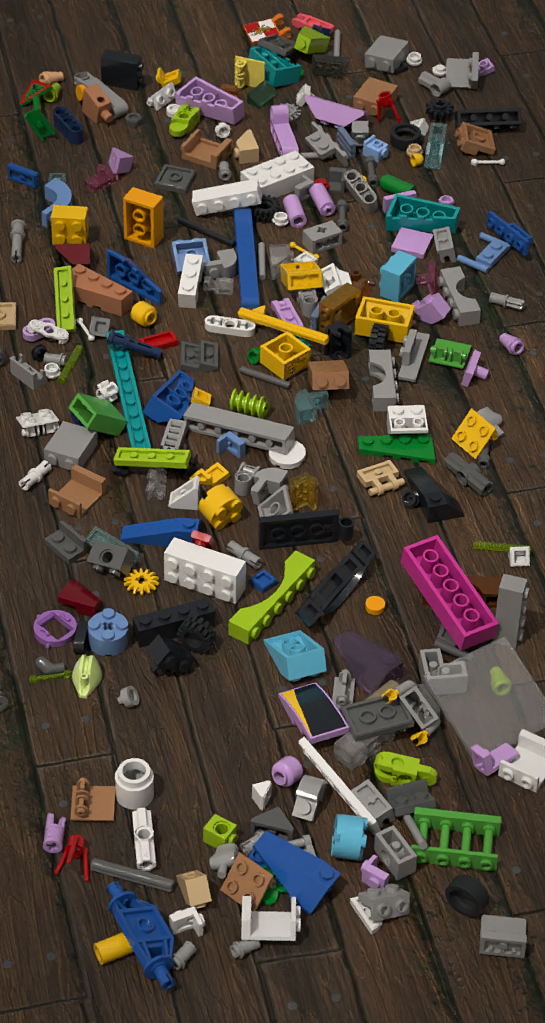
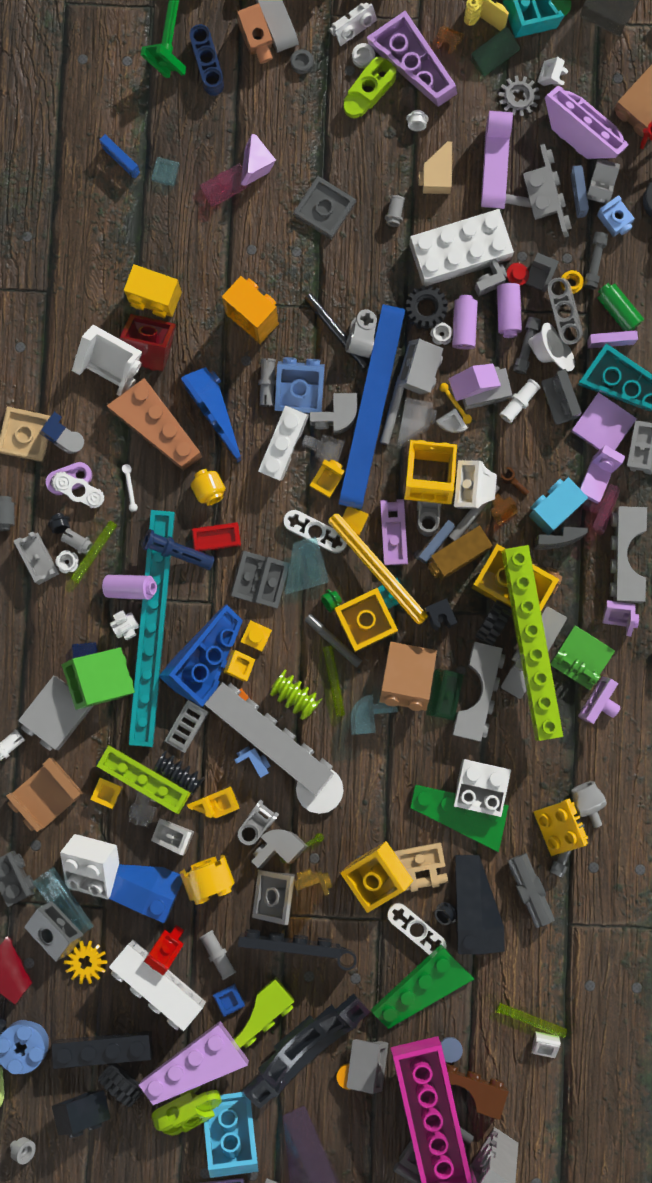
camera: 20 degrees right, 40 degrees up
(17, 236) = (84, 283): light grey pin -> none
(27, 306) = (60, 436): none -> leg
(43, 417) = (27, 651): white hinge -> none
(44, 257) = (108, 358): none -> white panel
(57, 193) = (161, 227): medium blue arch -> none
(65, 298) = (109, 443): lime plate -> none
(99, 326) = (145, 497): light grey tile -> none
(104, 368) = (129, 586): none -> lavender brick
(124, 483) = (106, 793): none -> yellow plate
(127, 518) = (90, 866): none -> white slope
(167, 261) = (267, 382): none -> light grey pin
(205, 151) = (381, 160): medium nougat panel -> none
(208, 384) = (256, 636): none -> yellow plate
(226, 225) = (362, 334): none -> light grey piece
(227, 197) = (377, 286): white brick -> none
(229, 294) = (328, 477): none -> yellow bracket
(231, 341) = (306, 566): none -> clear light blue wing
(249, 646) = (186, 1112): none -> lime piece
(251, 599) = (198, 1063): none -> lavender wedge
(272, 231) = (420, 366): none -> light grey brick
(283, 409) = (334, 681): none -> clear neon green bar
(312, 225) = (474, 381): none -> lavender slope
(348, 240) = (519, 401): none -> white pin
(349, 479) = (376, 877): none -> yellow brick
(355, 211) = (550, 348): none -> white piece
(359, 390) = (444, 694): none -> clear green slope
(378, 230) = (561, 398): none -> dark grey bracket
(387, 590) = (367, 1066): none -> light grey panel
(406, 514) = (406, 913): none -> white beam
(407, 289) = (565, 536): none -> dark grey slope
(410, 331) = (532, 643): none -> lime brick
(415, 530) = (426, 984): none -> green wing
(422, 252) = (599, 472): none -> lavender bracket
(431, 308) = (581, 572): lavender slope -> none
(467, 324) = (622, 615): none -> lavender bracket

